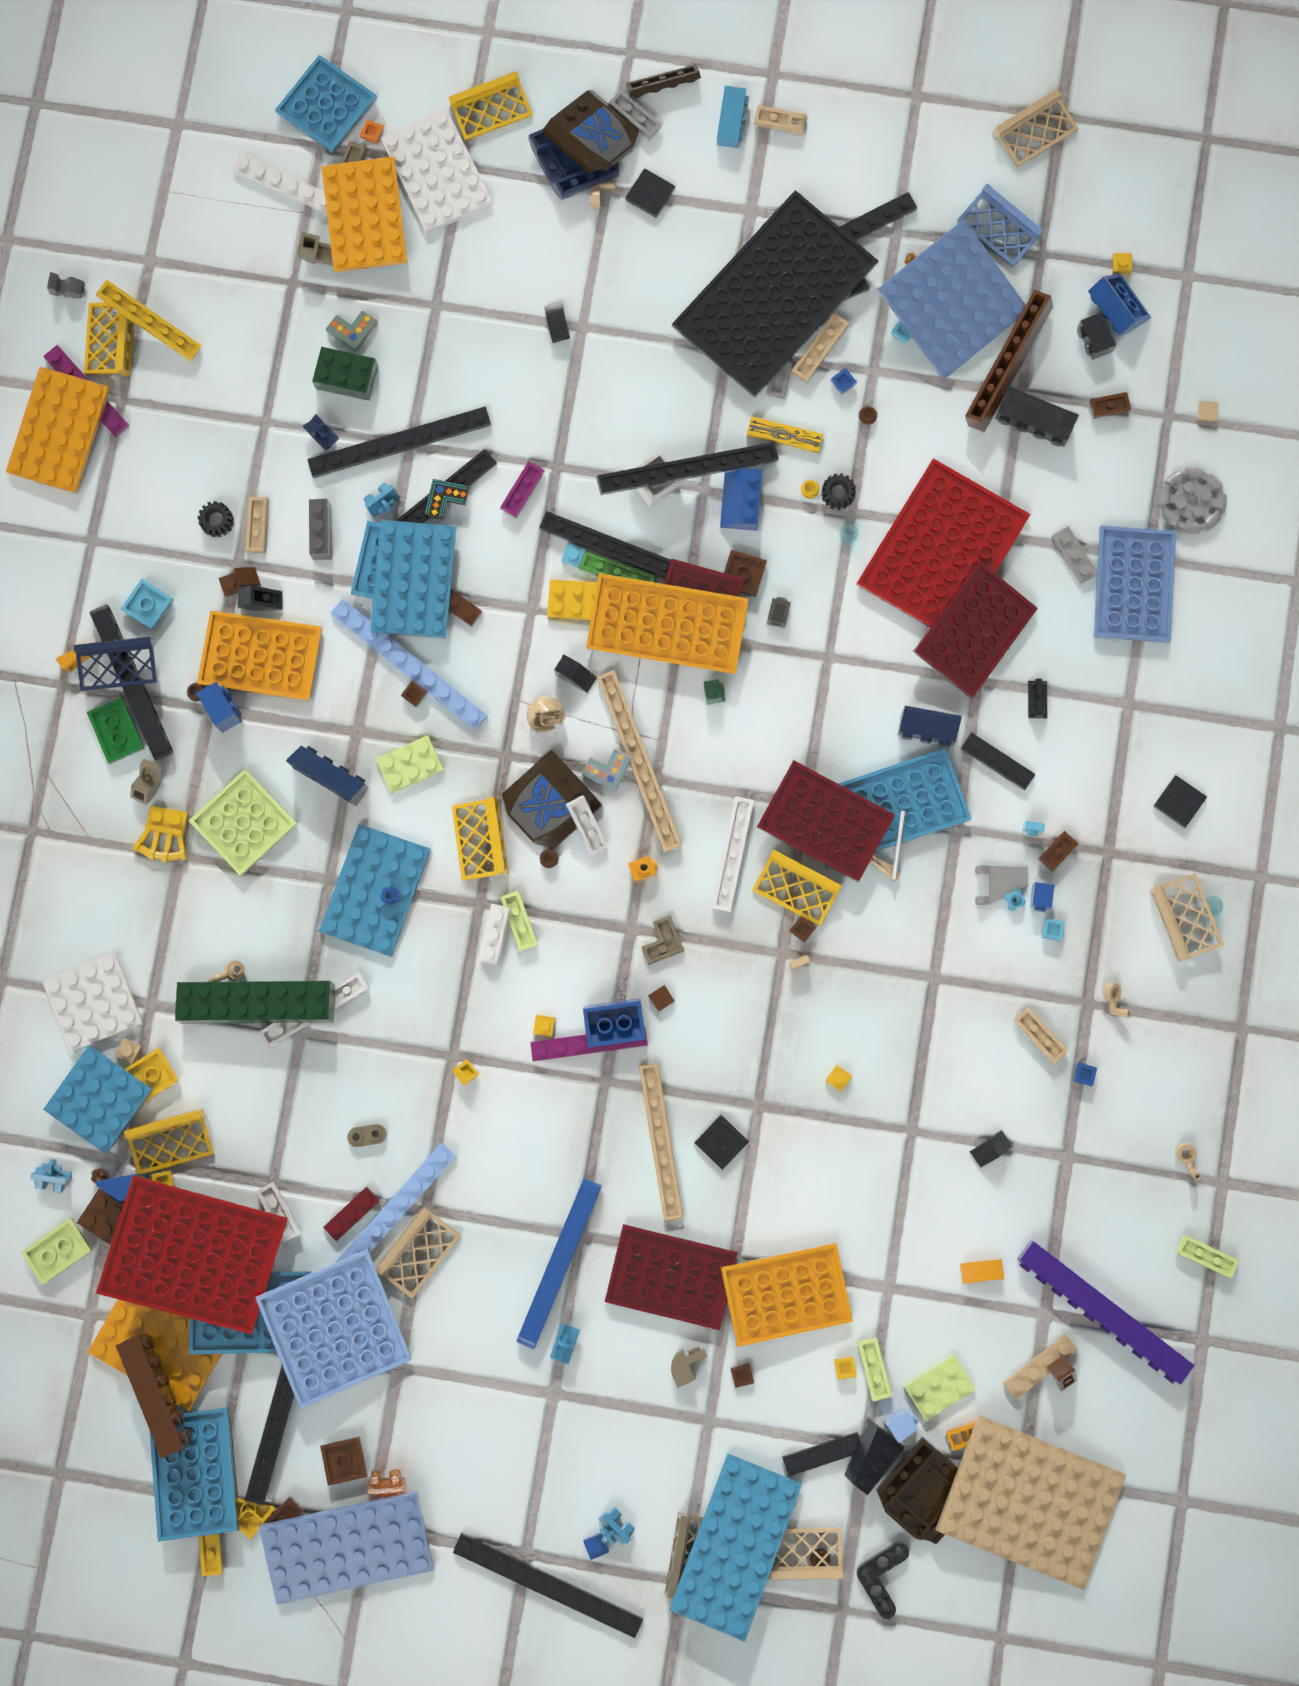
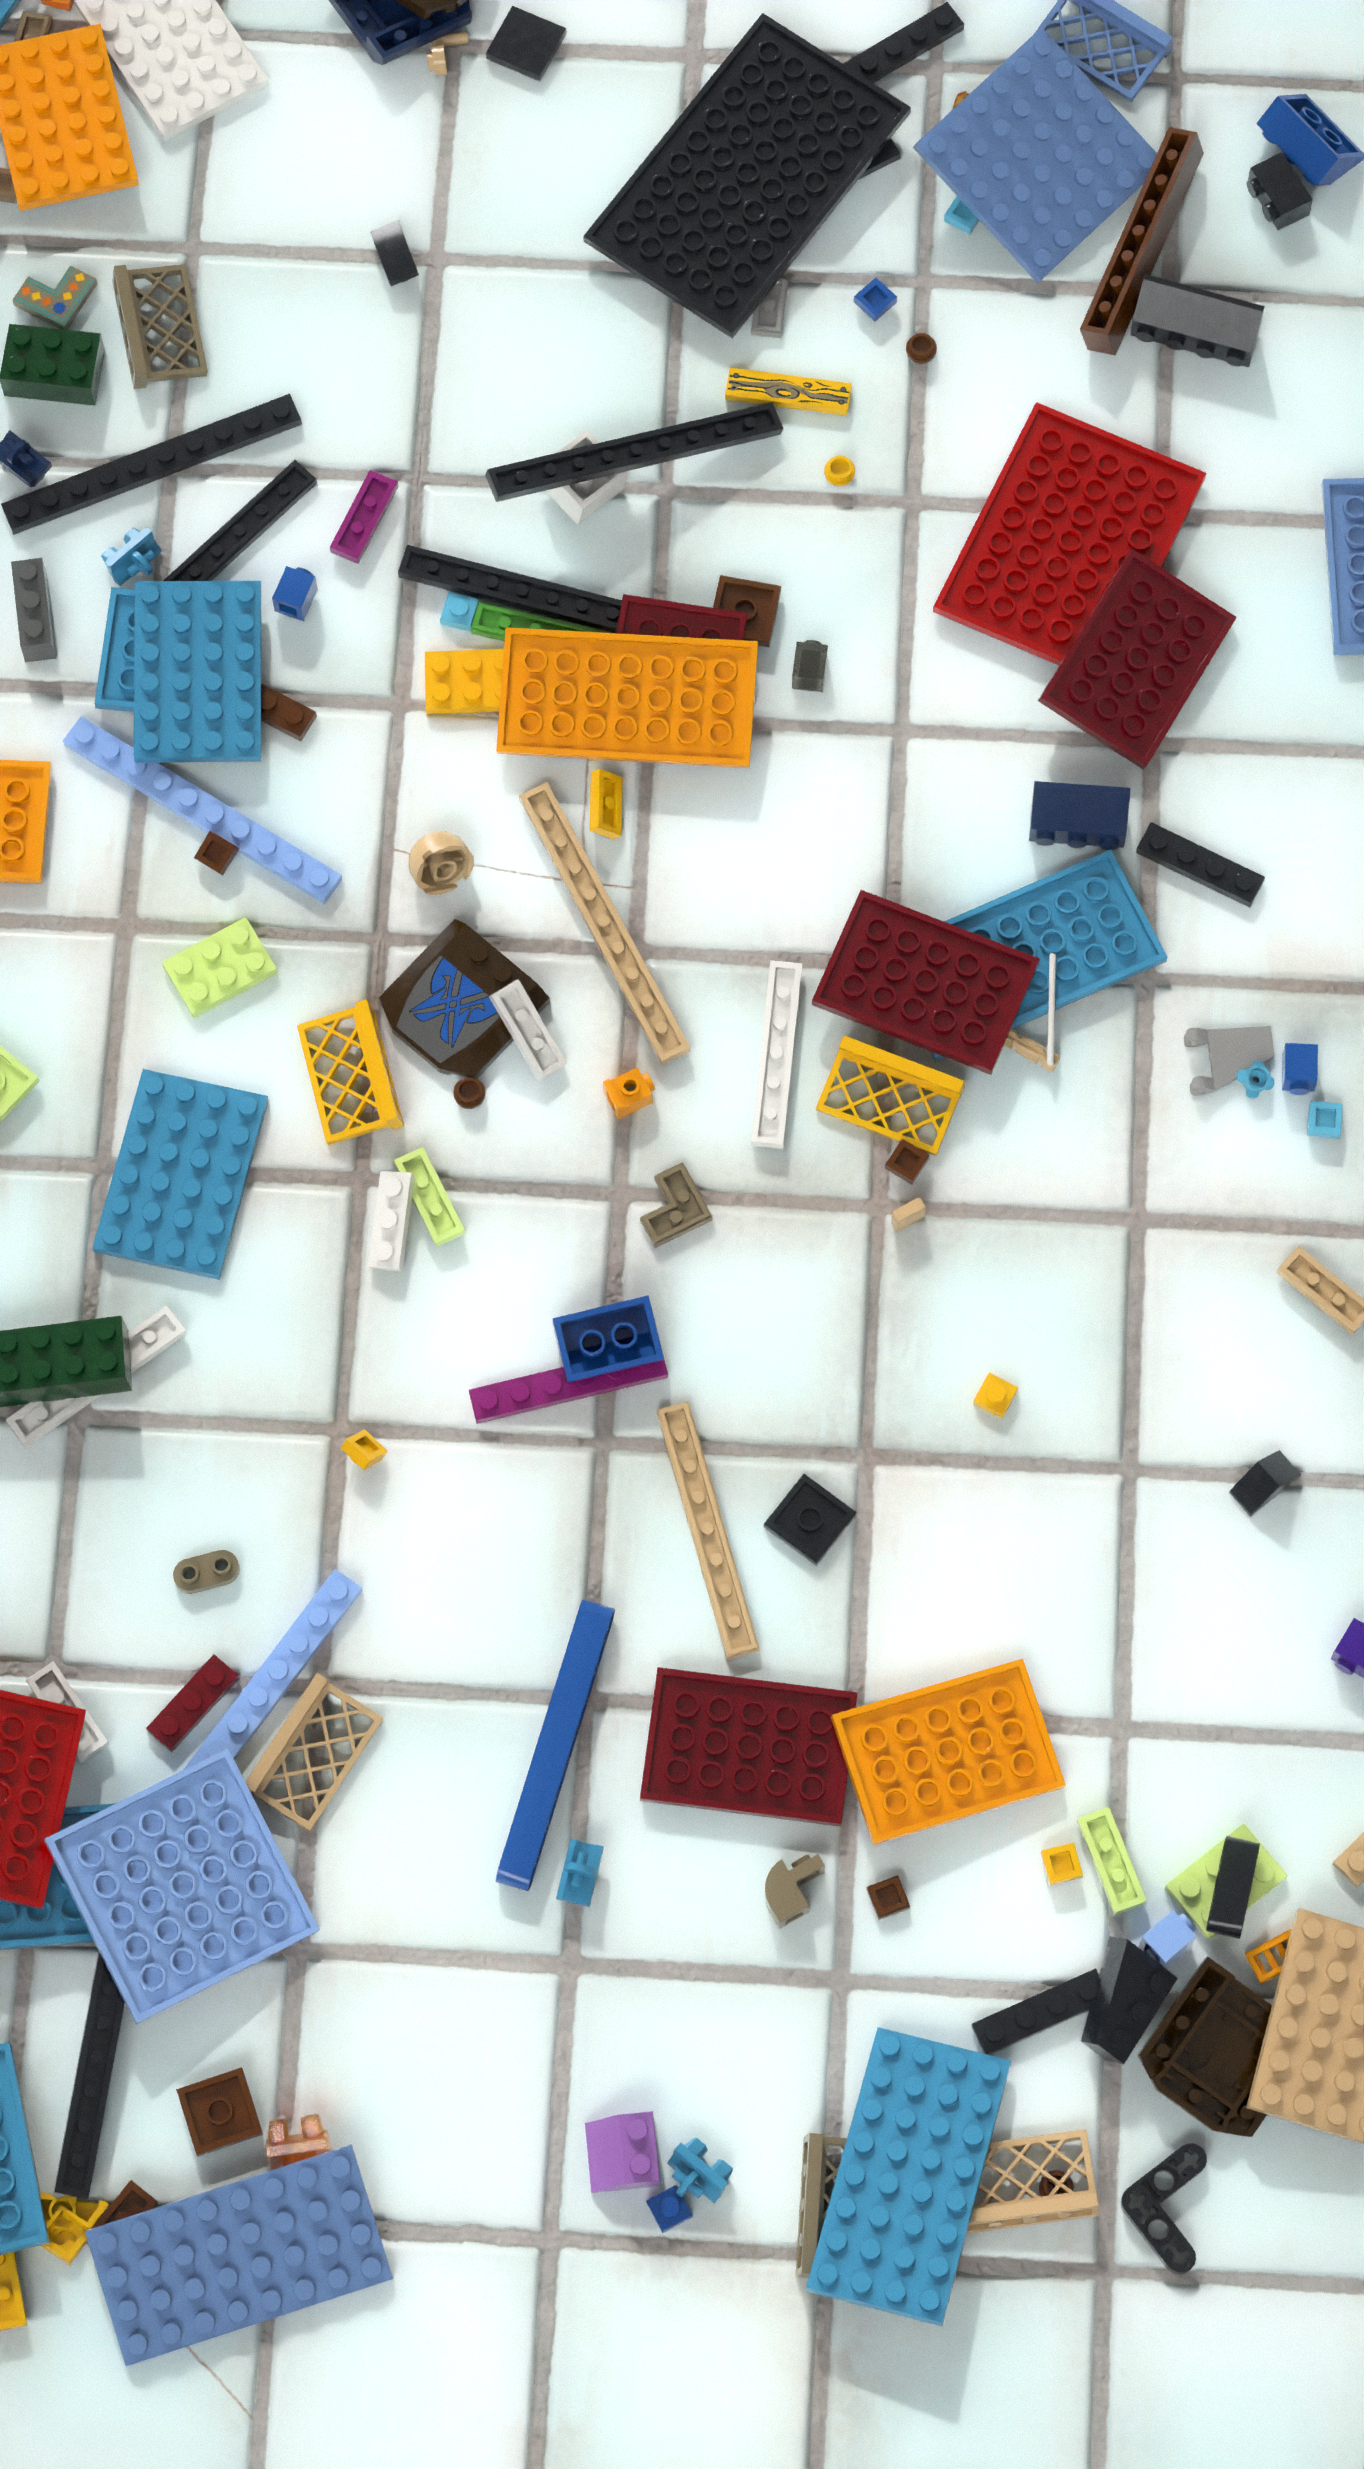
camera: 10 degrees left, 10 degrees down
(328, 775) = (84, 995): dark blue slope -> none
(390, 901) = (211, 1183): blue plate -> none
(396, 355) = (133, 331): none -> dark tan fence
(444, 492) = (235, 532): tile -> none
(476, 534) = (295, 593): none -> blue brick
(544, 1025) = (489, 1362): yellow plate -> none
(548, 1585) = (593, 2283): black plate -> none
(573, 1512) = (622, 2152): none -> medium lavender slope
(575, 673) = (481, 794): black slope -> none
(610, 774) = (559, 947): light grey tile -> none
(648, 687) = (606, 804): none -> yellow plate
(661, 998) = (682, 1297): reddish brown tile -> none
(714, 691) = (716, 800): clear green brick -> none
(741, 499) = (728, 496): blue slope -> none
(820, 348) = (830, 252): tan plate -> none
(842, 481) = (892, 453): black tyre -> none
(849, 527) = (912, 525): clear light blue plate -> none
(943, 1396) = (1232, 1887): none -> black beam
(982, 1271) = (1274, 1679): light orange slope -> none
(1033, 828) = (1272, 961): medium azure plate -> none
(1037, 699) = (1254, 759): black hinge -> none
(1058, 851) = (1317, 995): reddish brown plate -> none
(1074, 555) = (1286, 531): light grey plate -> none
(1110, 405) = (1315, 294): reddish brown plate -> none
(1122, 263) = (1307, 78): yellow plate -> none

